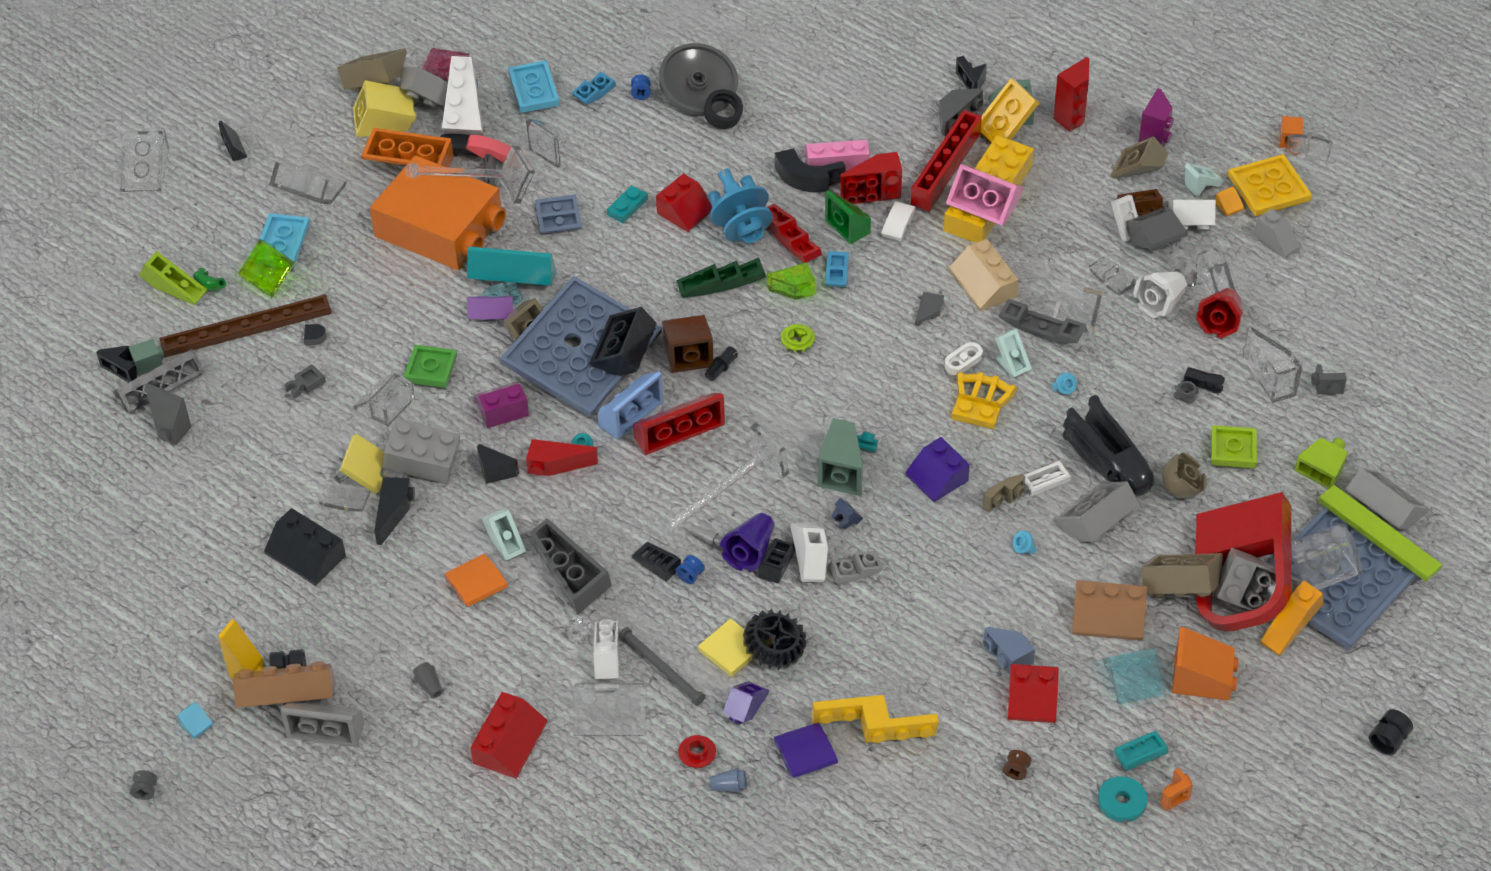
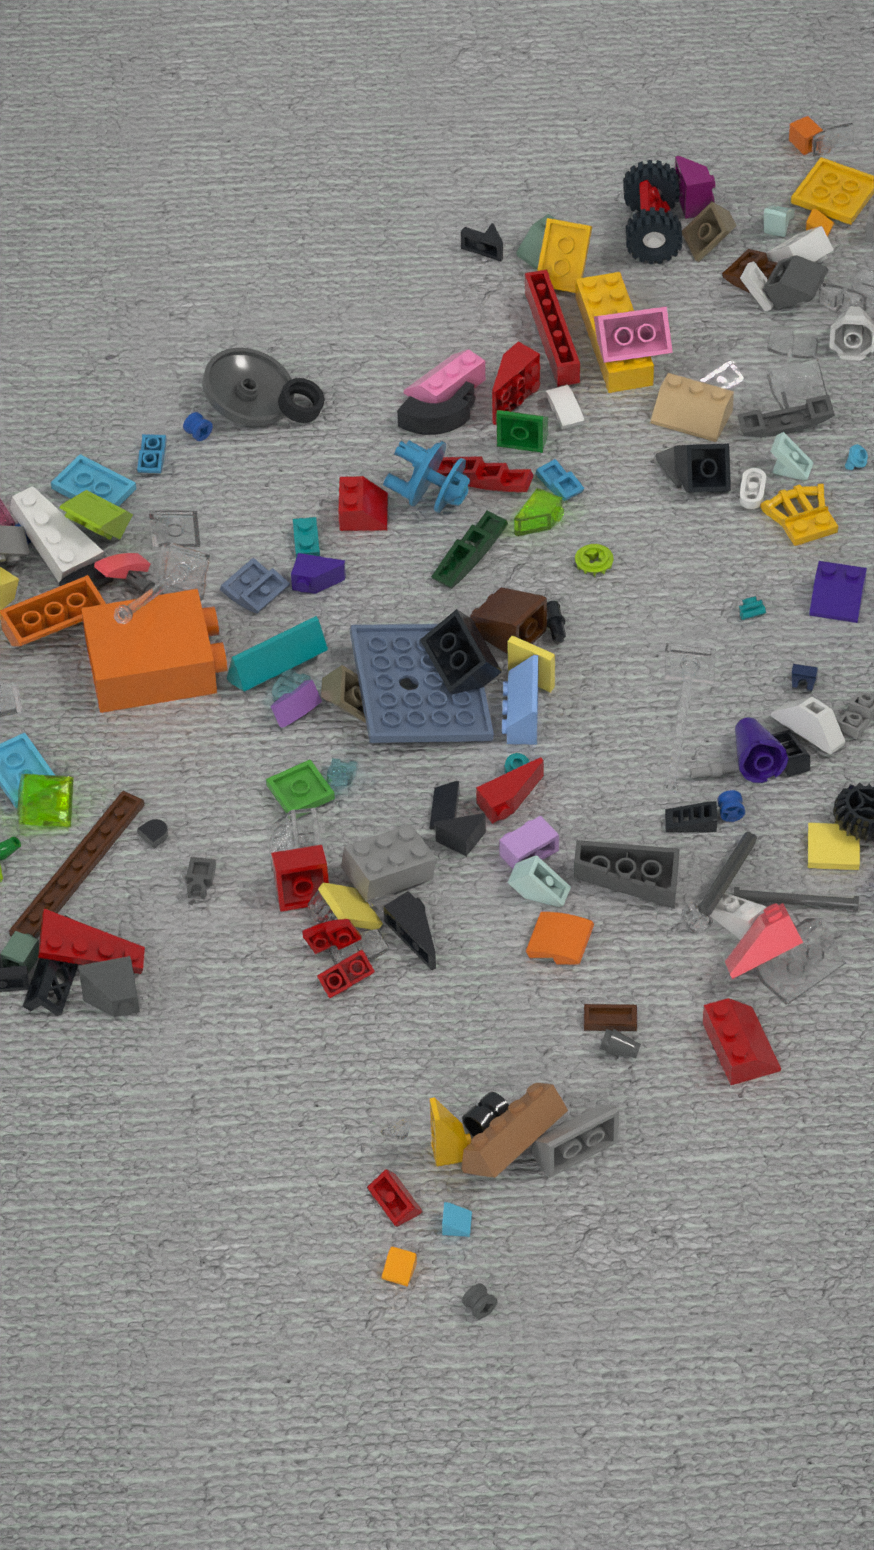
camera: 40 degrees left, 0 degrees up
(126, 725) = (399, 1266): none -> light orange slope
(179, 677) = (394, 1198): none -> red slope
(180, 373) = (81, 944): none -> red wing
(304, 547) = (377, 1013): black slope -> none
(317, 506) = (345, 973): none -> red slope
(329, 473) = (331, 933): none -> red slope
(355, 415) = (298, 875): none -> red slope
(447, 658) = (610, 1016): none -> reddish brown tile
(466, 372) = (341, 772): none -> clear light blue plate
(500, 102) = (97, 514): none -> lime slope
(502, 404) = (403, 777): magenta slope -> none
(510, 439) = (445, 802): none -> black slope
(528, 501) = (531, 839): none -> lavender brick
(592, 675) = (766, 938): none -> coral slope
(602, 230) = (316, 573): none -> dark purple slope
(629, 613) = (727, 873): none -> dark grey axle
(667, 380) = (521, 650): none -> light yellow tile
(680, 423) = (581, 691): red slope -> none
(840, 459) = (758, 631): sand green slope -> none
(940, 321) = (703, 467): none -> black slope
(954, 103) = (505, 278): dark grey slope -> none
(1072, 95) = (607, 205): red slope -> none
(1092, 131) = (653, 230): none -> black plate

